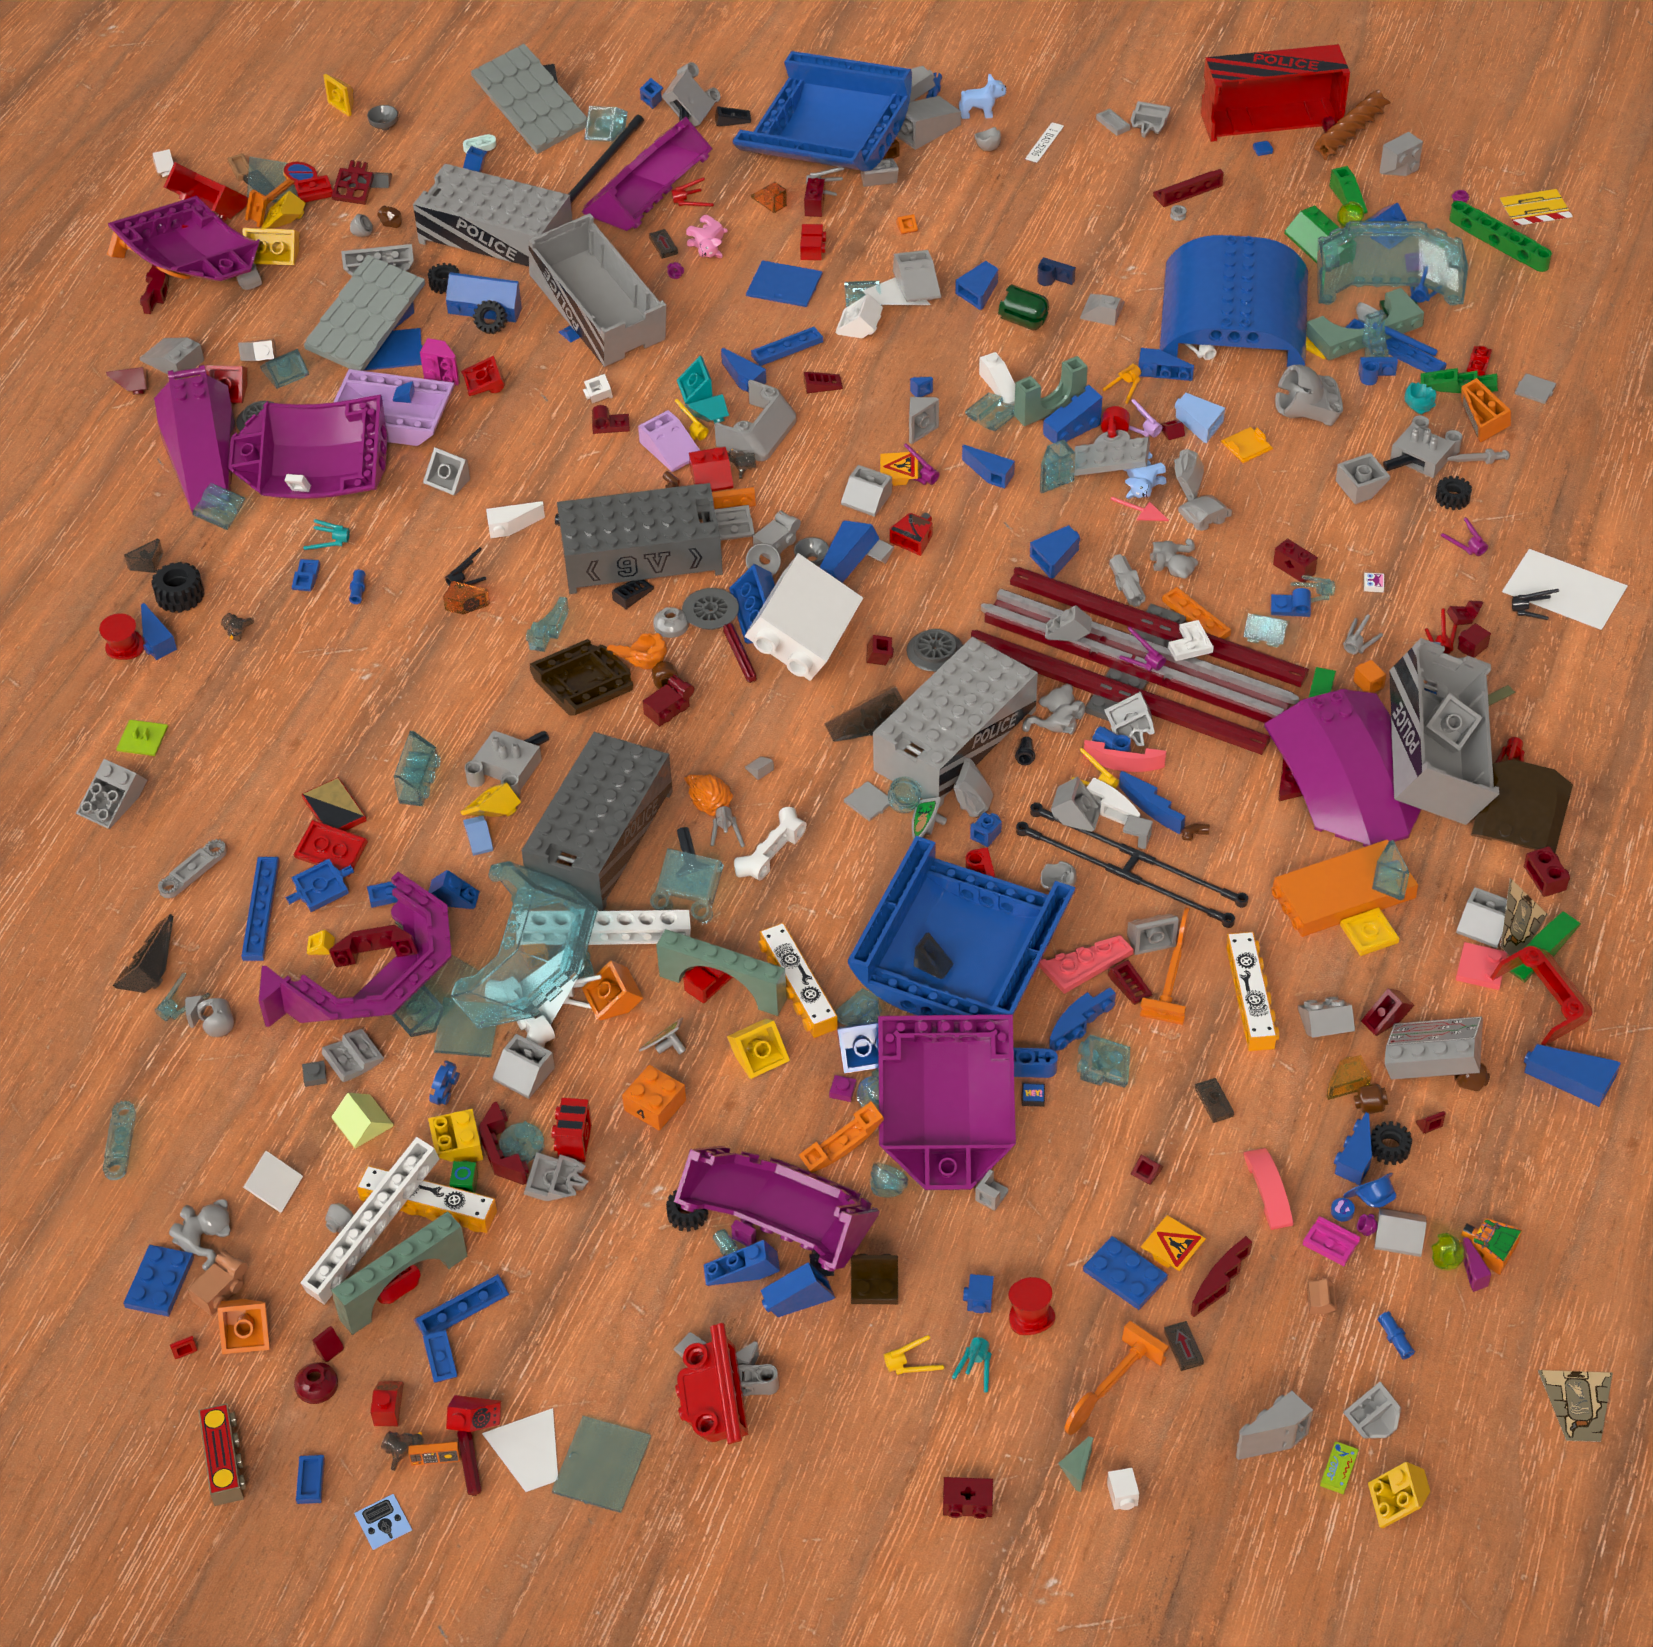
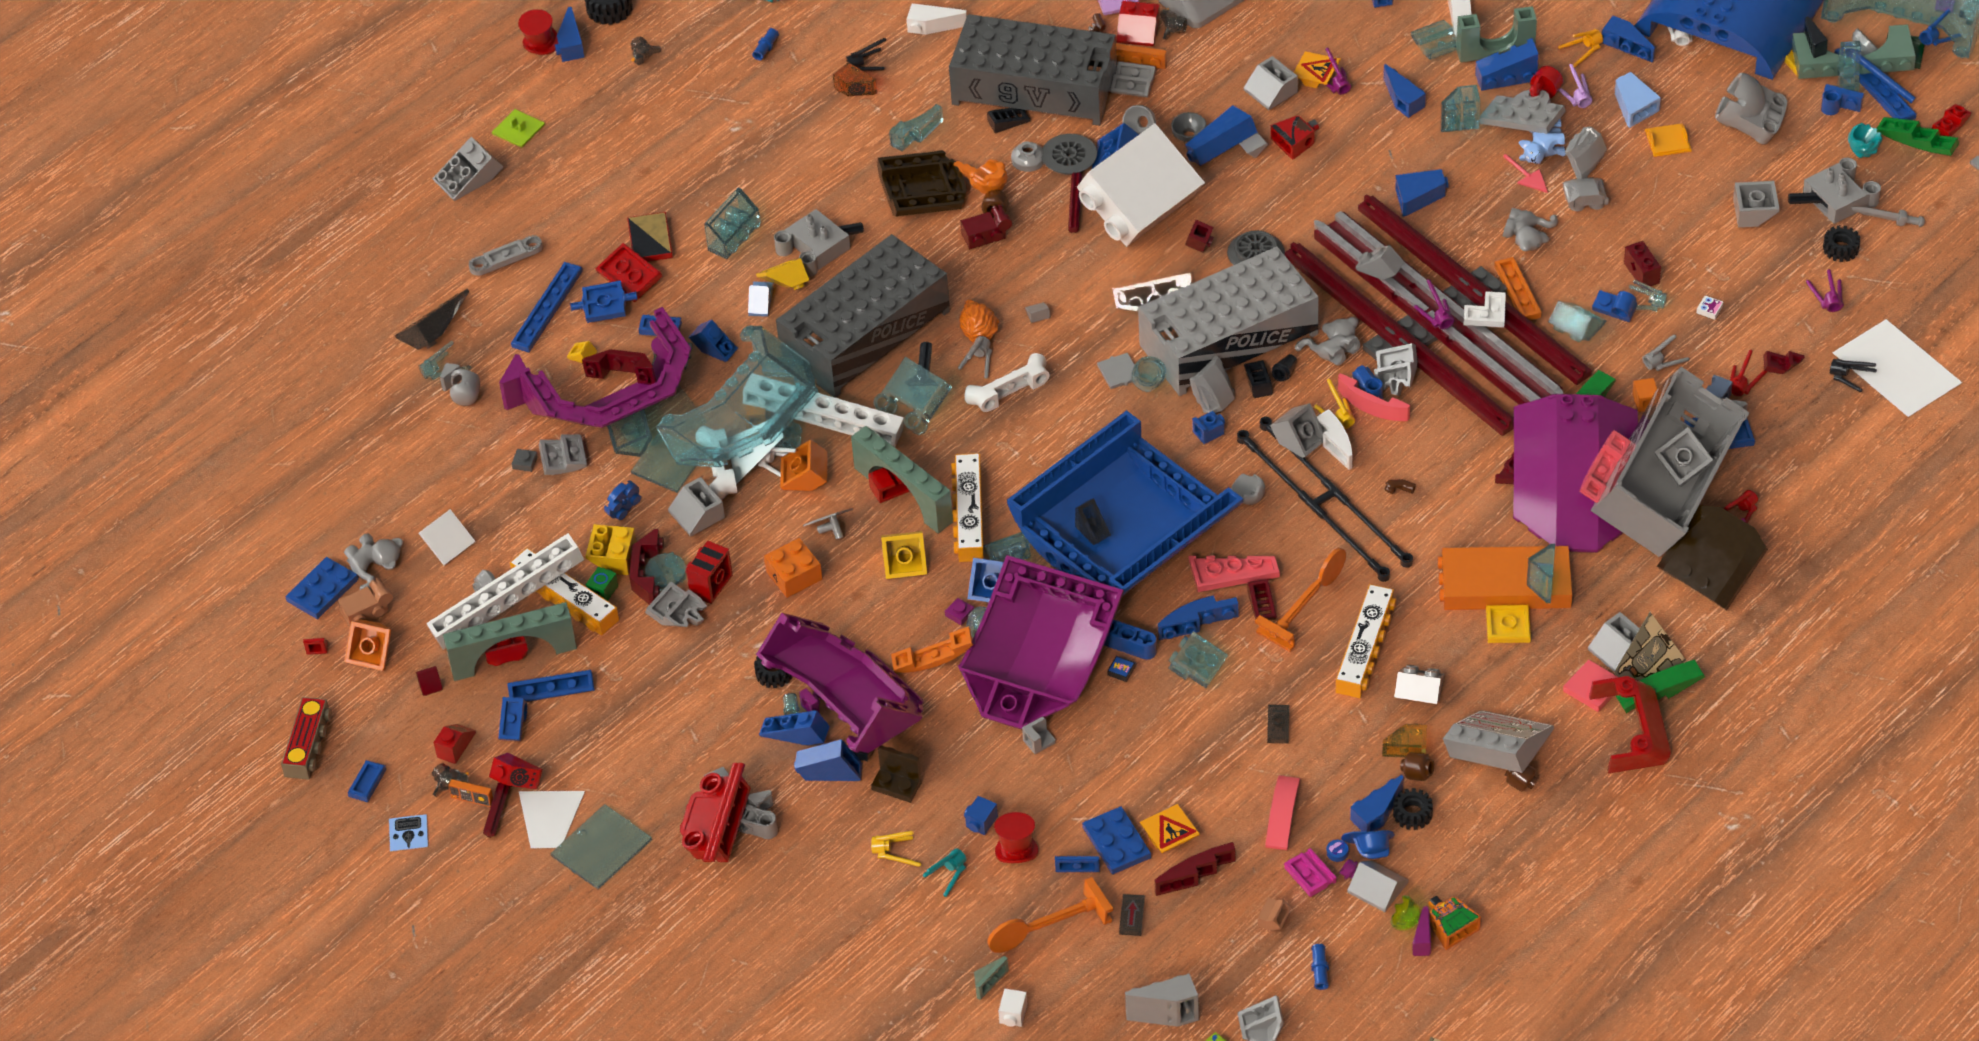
camera: 25 degrees right, 0 degrees up
(119, 1140) = (341, 465): clear light blue plate -> none
(306, 575) = (727, 21): blue slope -> none
(319, 1390) = (407, 714): dark red piece -> none
(360, 1118) = (544, 508): yellowish green slope -> none
(778, 532) = (1166, 102): light grey hinge -> none
(887, 1180) = (952, 698): clear light blue hat -> none
(922, 417) = (1360, 26): light grey slope -> none
(925, 817) = (1159, 401): shield -> none
(959, 1489) = (880, 970): dark red brick -> none
(980, 861) = (1184, 454): red plate -> none
(1007, 770) = (1259, 380): none -> black slope
(1101, 1311) = (1077, 863): none -> blue slope
(1127, 580) = (1470, 237): light grey piece -> none
(1139, 827) = (1347, 468): light grey panel -> none
(1146, 798) = (1372, 447): blue slope -> none
(1146, 1169) = (1184, 762): dark red slope -> none
(1153, 933) = (1302, 563): light grey slope -> none
(1173, 429) = (1603, 105): dark red slope -> none
(1335, 321) = (1815, 38): none -> black slope
(1385, 753) = (1604, 465): none -> coral slope
(1387, 1011) = (1479, 695): dark red slope -> none
(1431, 1122) = (1461, 803): dark red slope -> none
(1473, 640) = (1770, 390): dark red brick -> none
(1484, 410) = (1921, 173): orange wedge -> none
(1500, 694) = (1757, 450): olive sticker -> none
(1546, 871) = (1705, 621): dark red brick -> none
(1573, 1072) = (1618, 803): blue slope -> none

